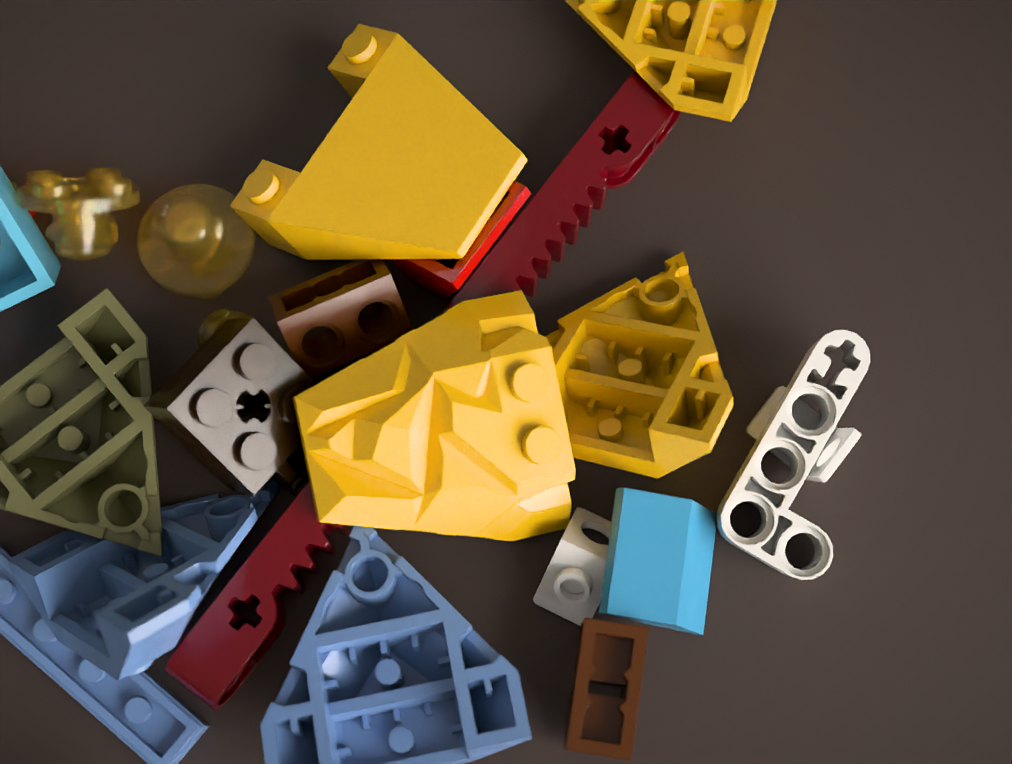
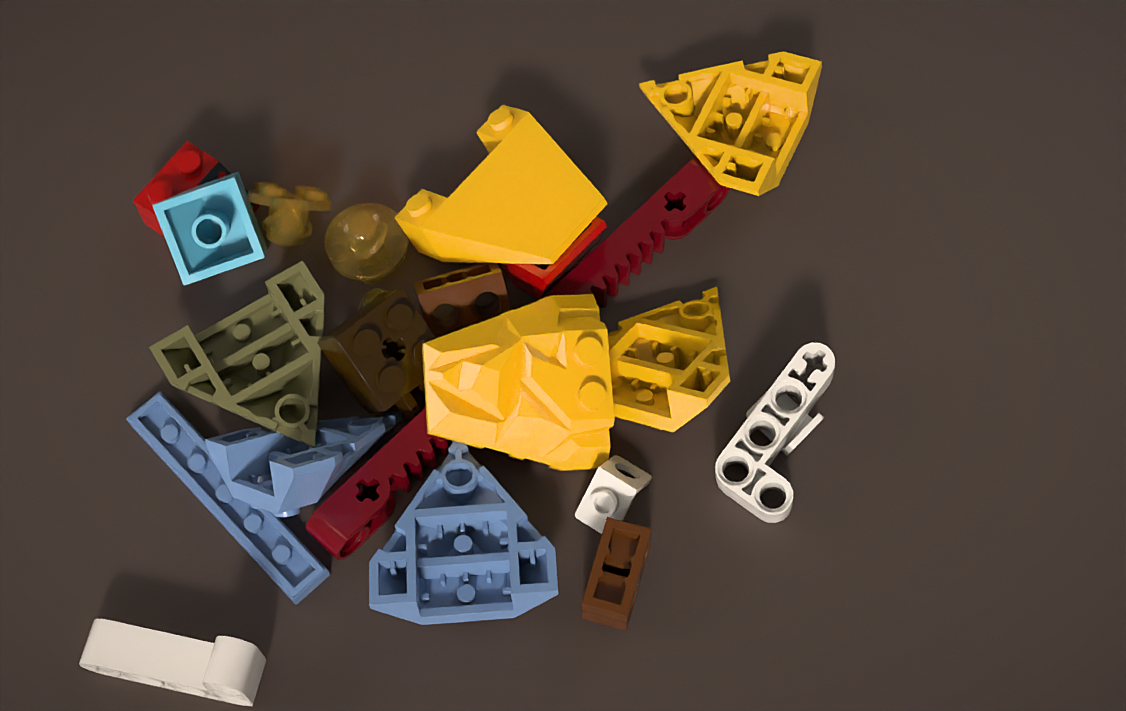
camera: 10 degrees right, 10 degrees down
(659, 560) = (669, 492): dark azure slope -> none

